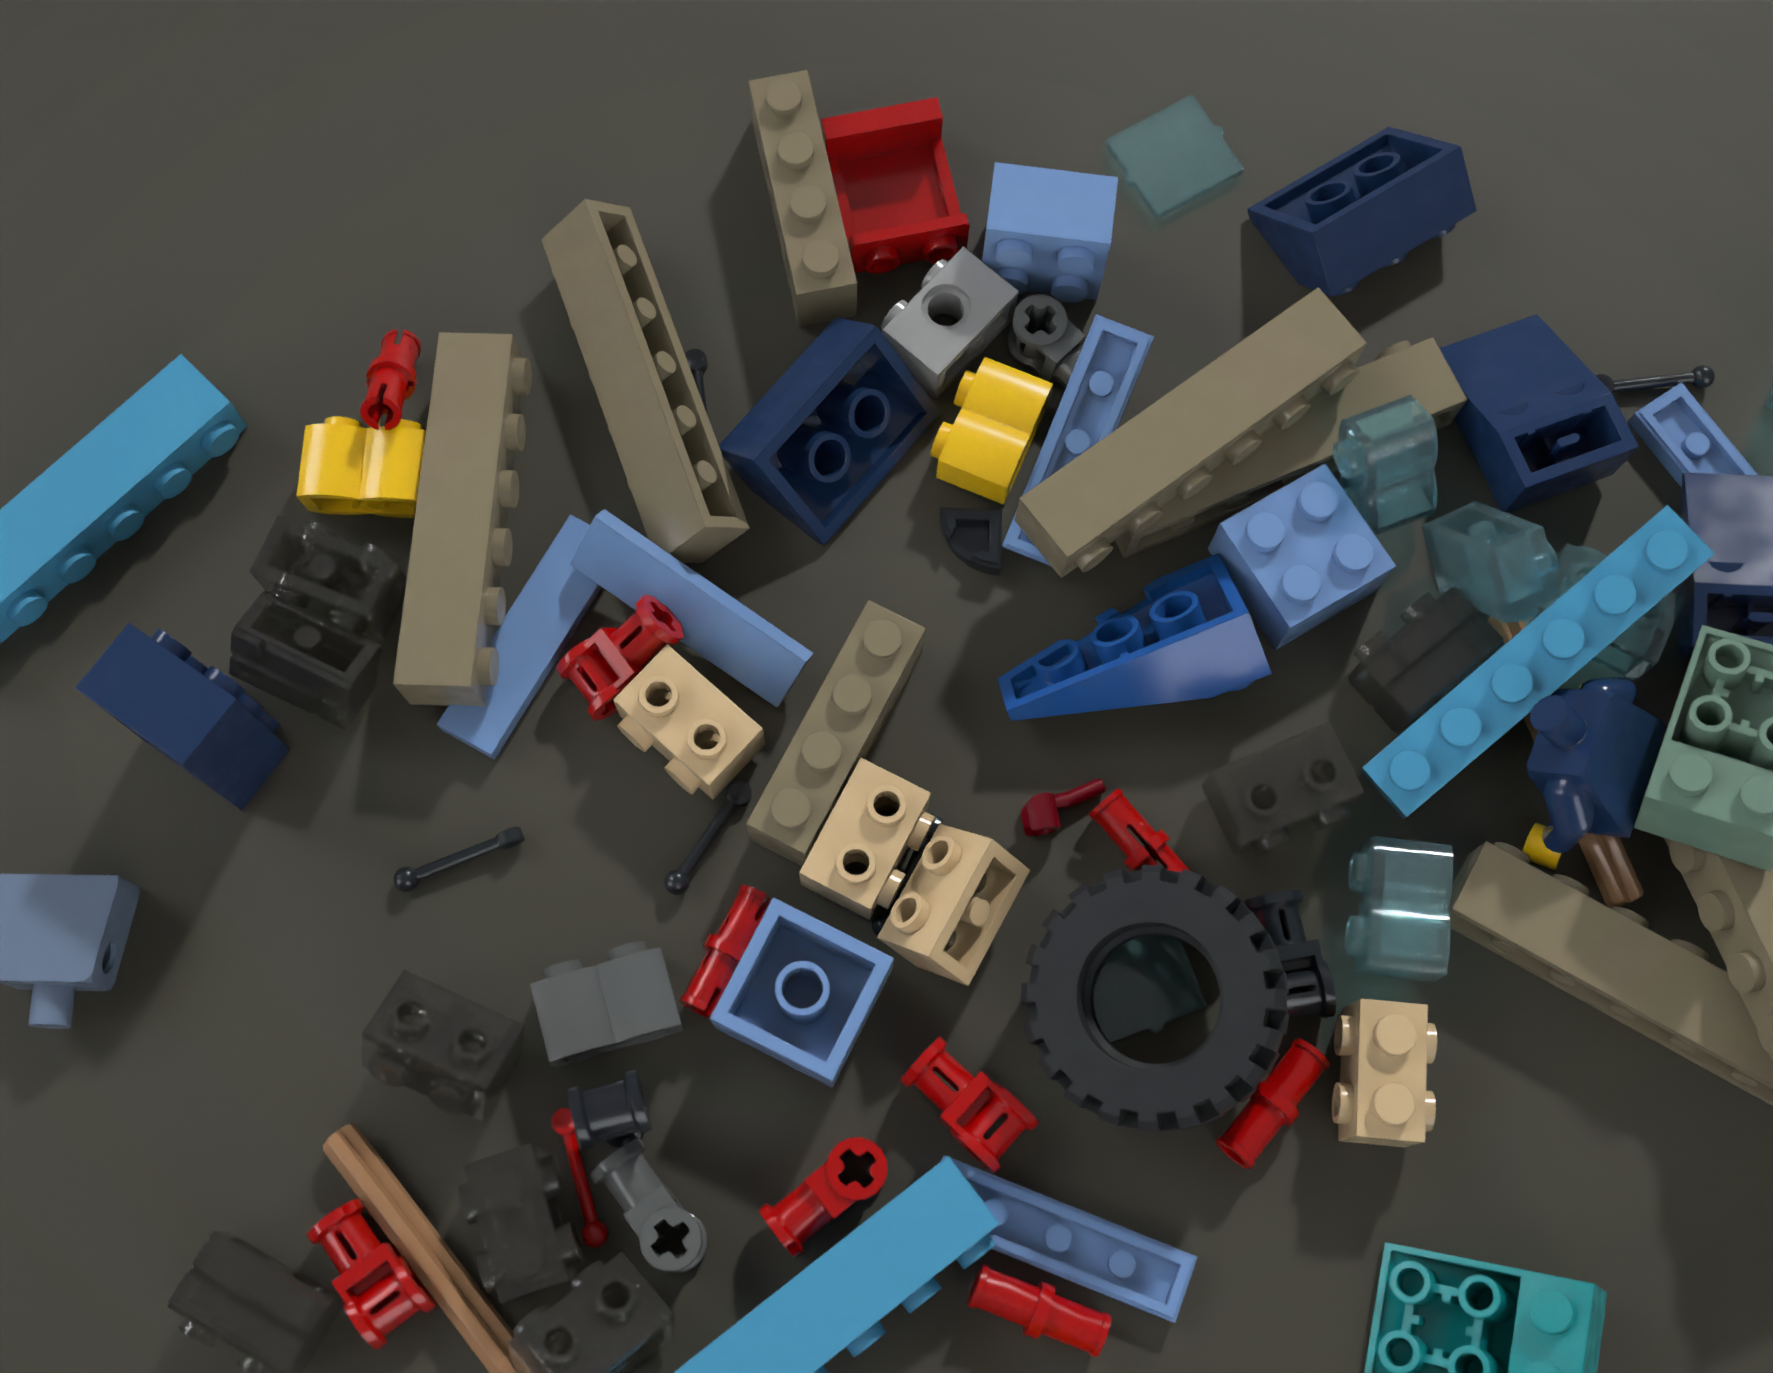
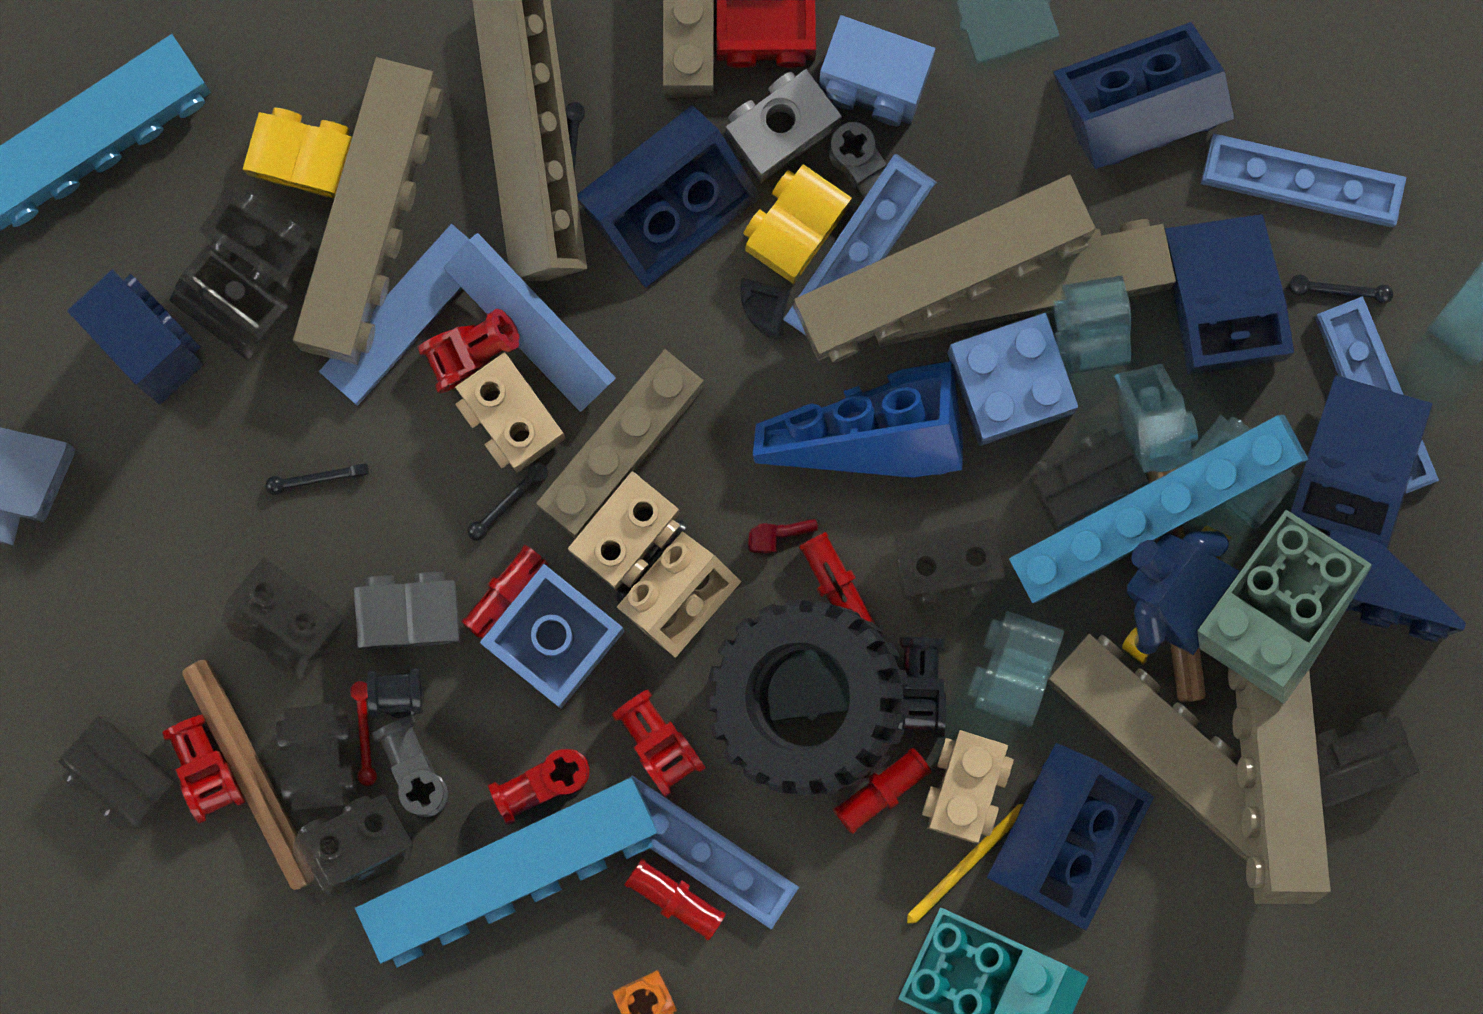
camera: 15 degrees right, 10 degrees up
(391, 379) = (331, 86): red pin -> none
(1400, 1182) = (964, 866): none -> yellow axle
(1528, 1108) = (1071, 836): none -> dark blue slope
(1570, 270) = (1303, 180): none -> medium blue tile

